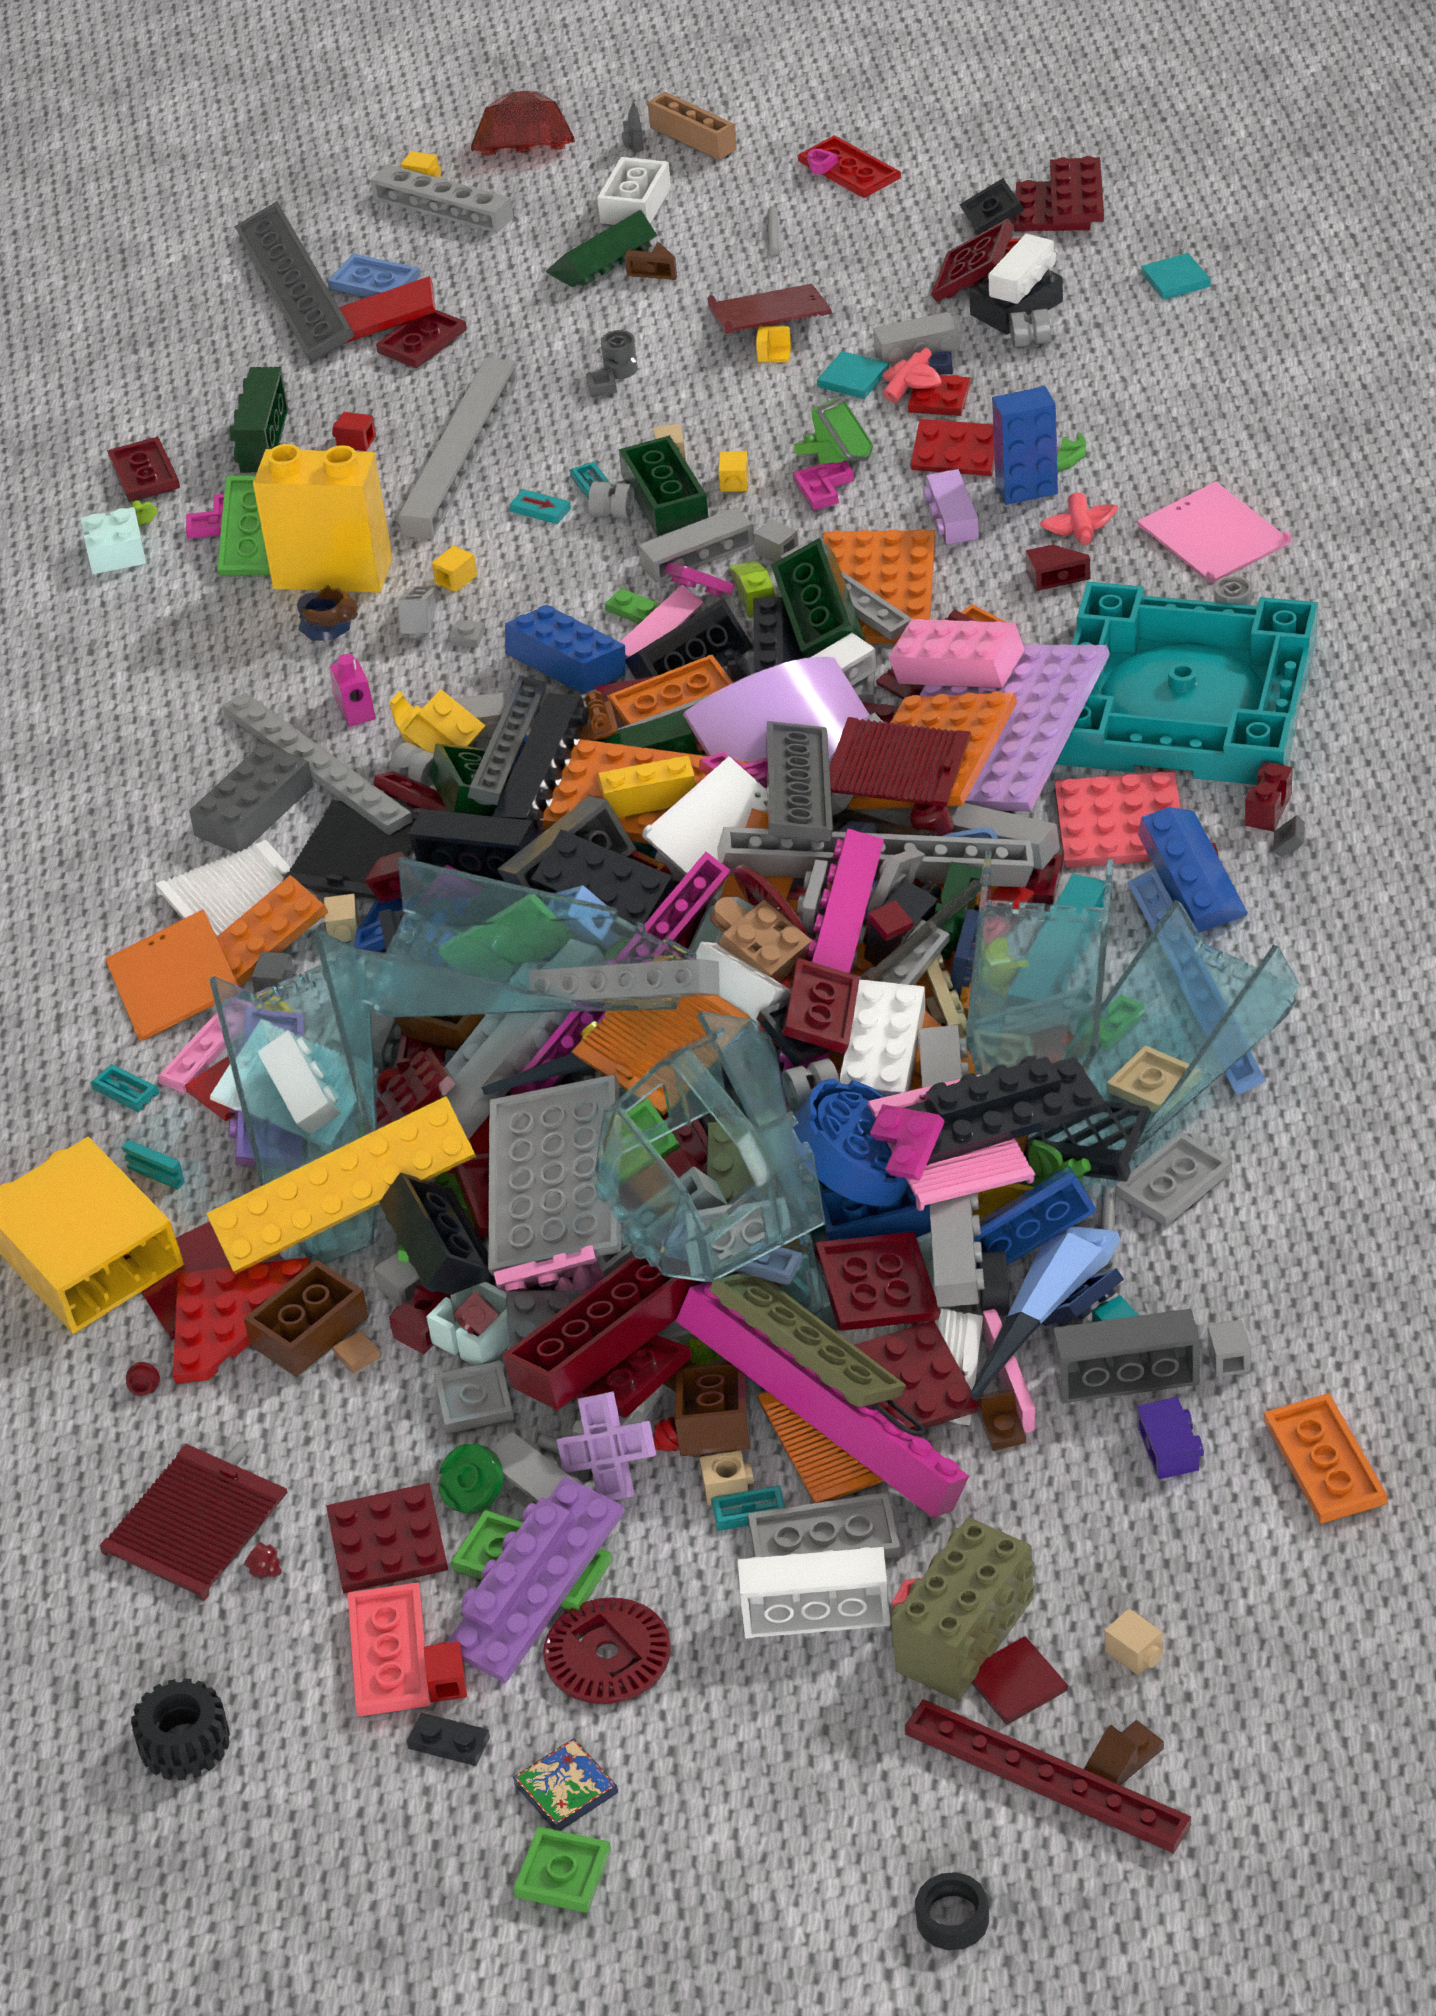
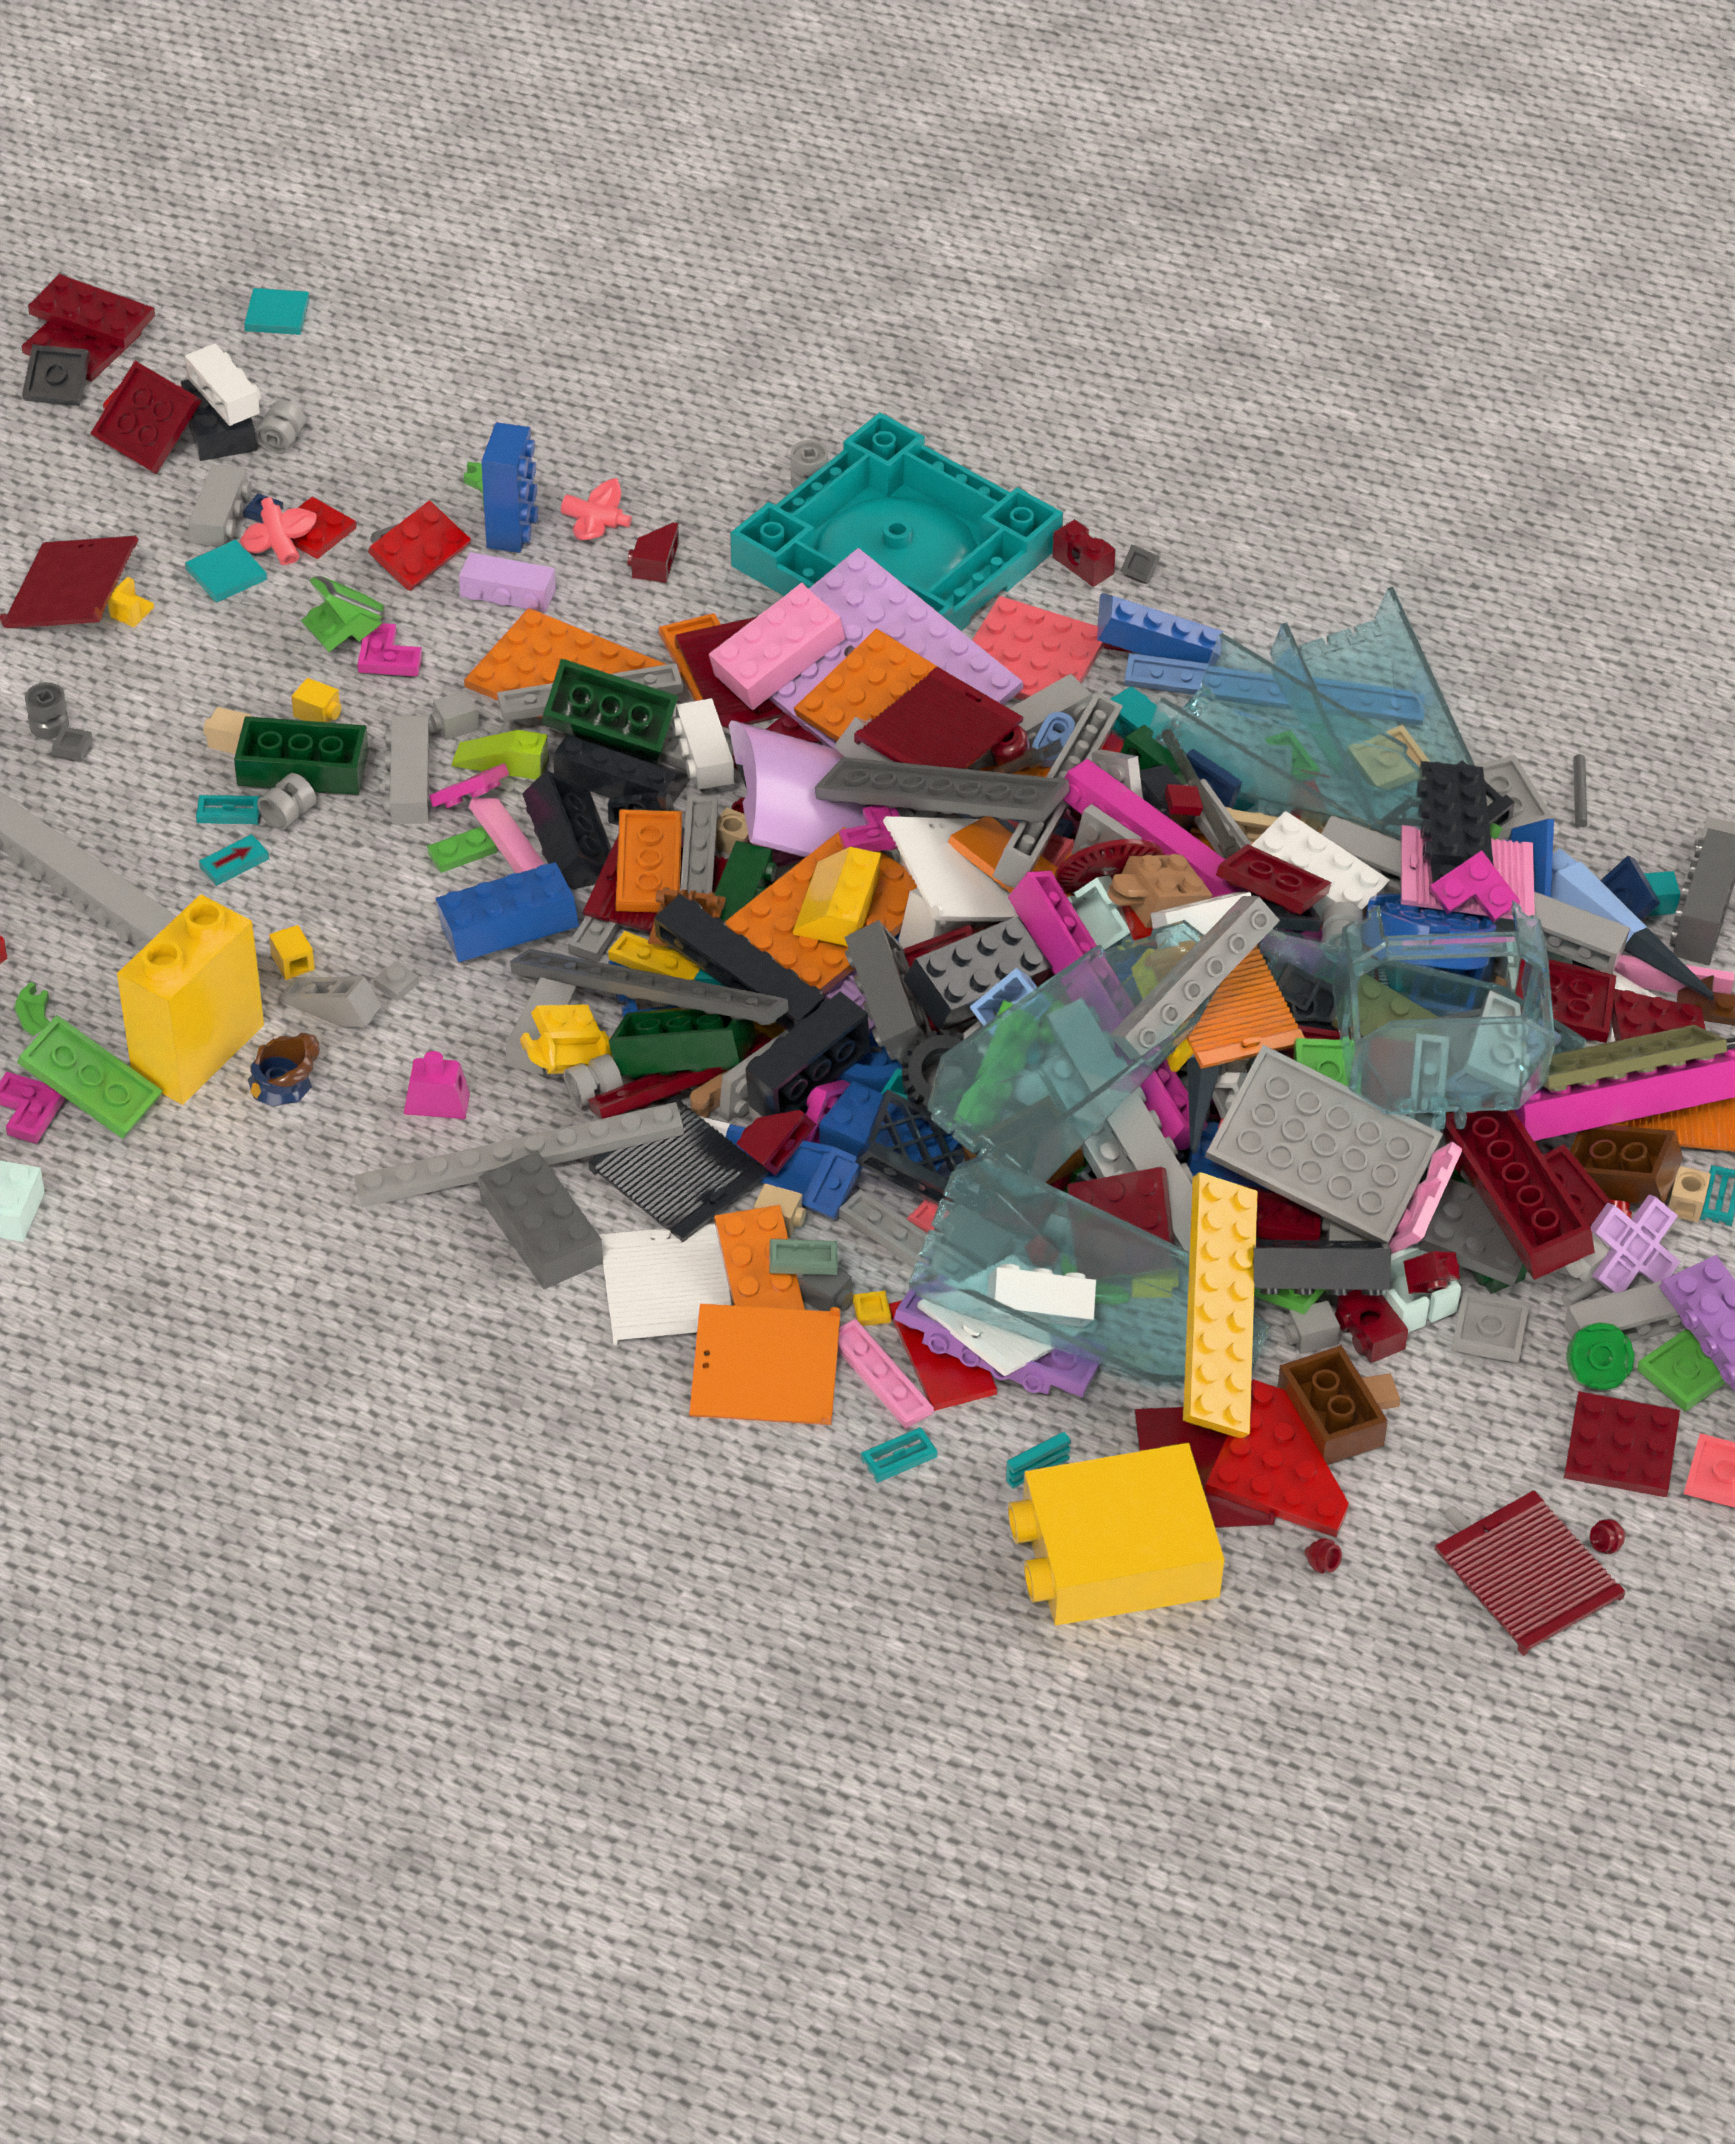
camera: 70 degrees left, 5 degrees up
(275, 939) = (803, 1257): none -> sand green plate
(1214, 532) = (684, 443): bright pink door -> none
(1231, 1230) = (1580, 794): none -> dark grey bar

